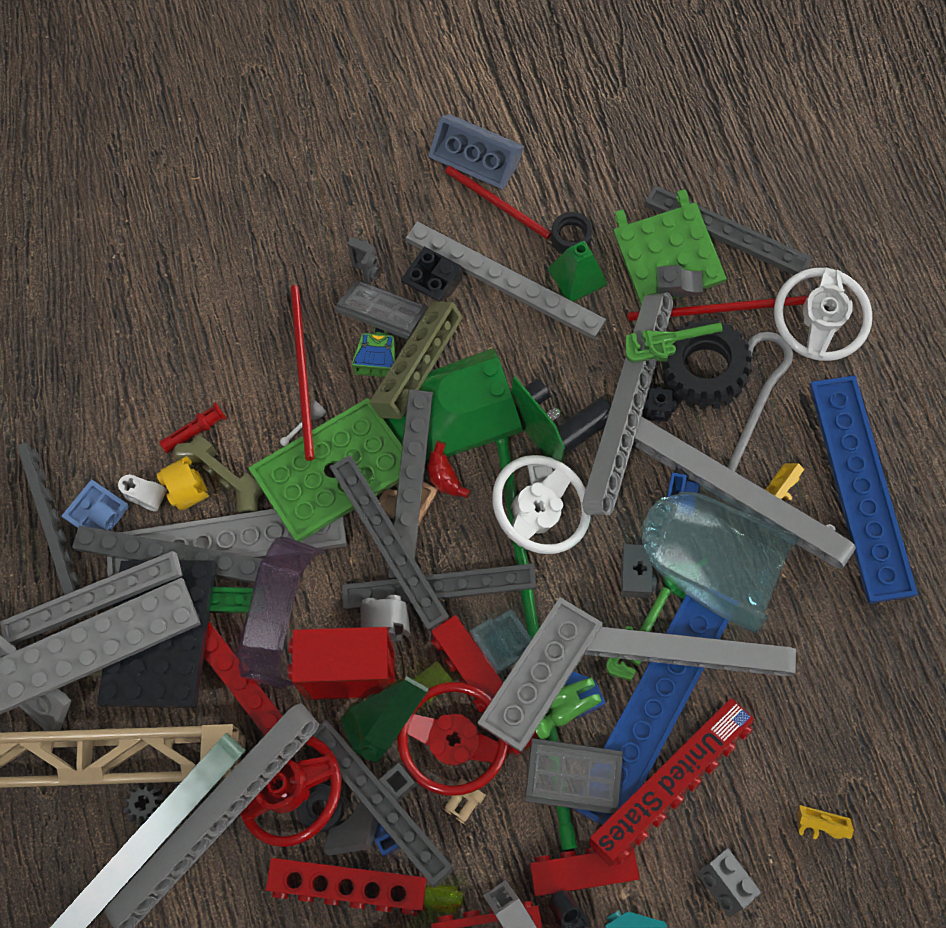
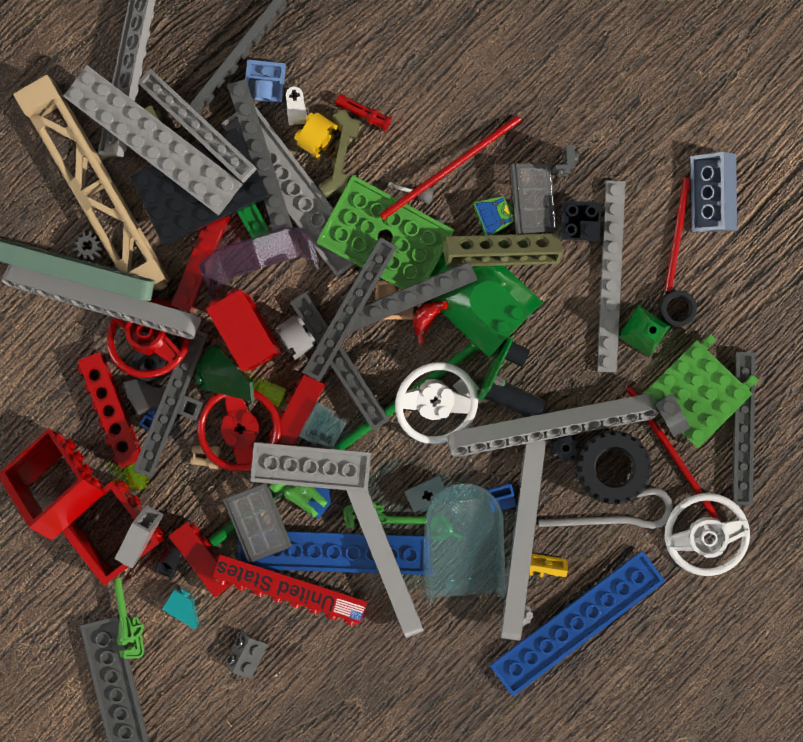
camera: 60 degrees right, 20 degrees up
(659, 343) = (606, 428): bright green piece -> none
(833, 824) = (318, 700): yellow plate -> none

